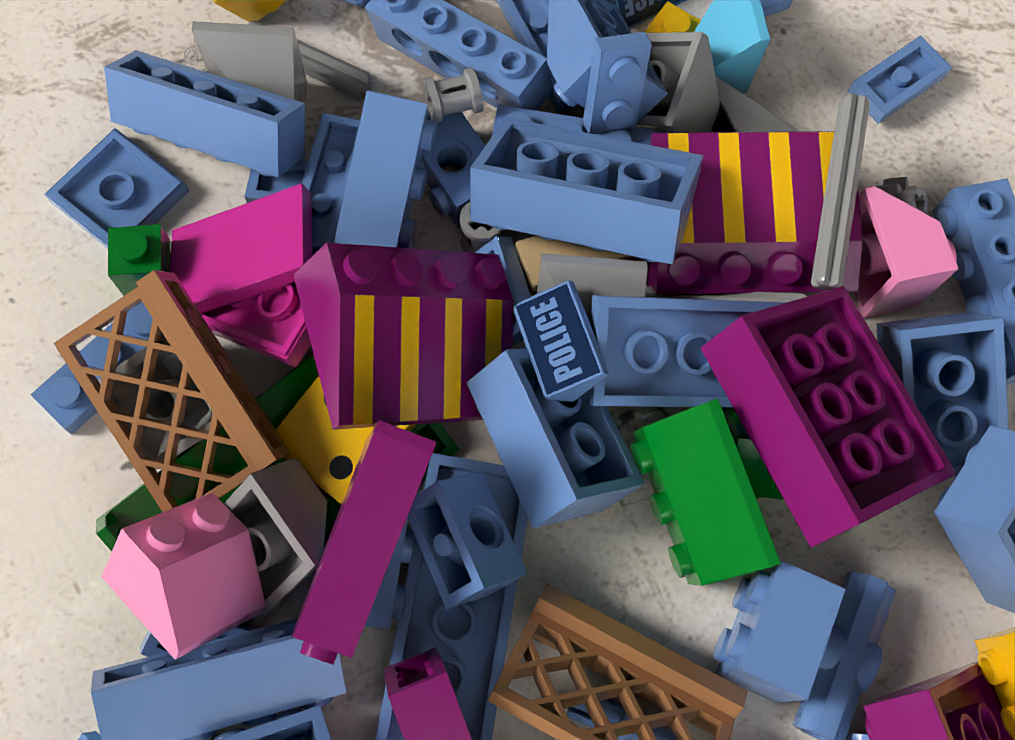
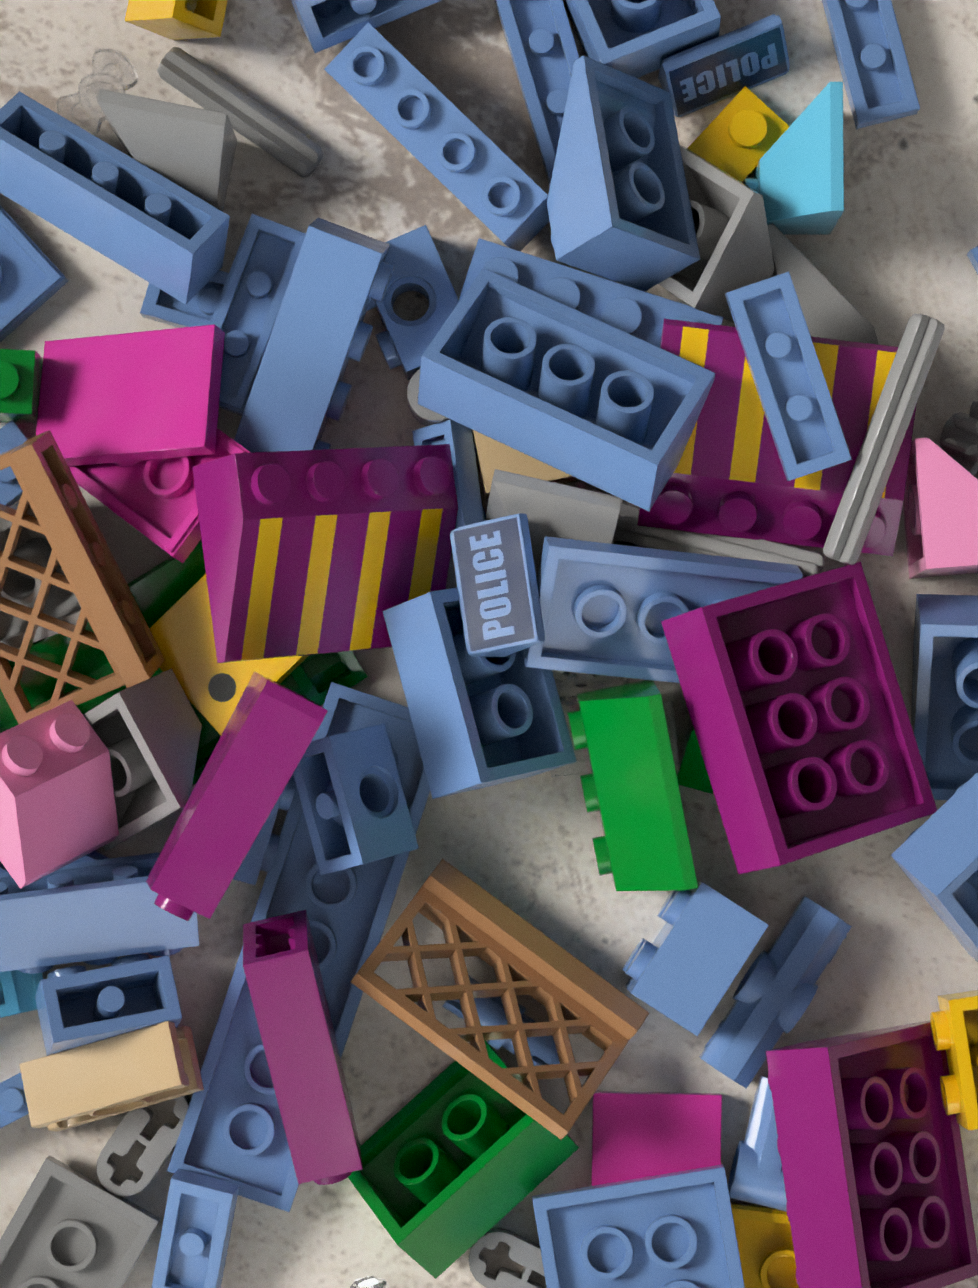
camera: 15 degrees right, 15 degrees up
(453, 95) = (438, 234): light grey bush -> none
(616, 82) = (624, 259): medium blue plate -> none
(759, 152) = (788, 376): none -> medium blue plate

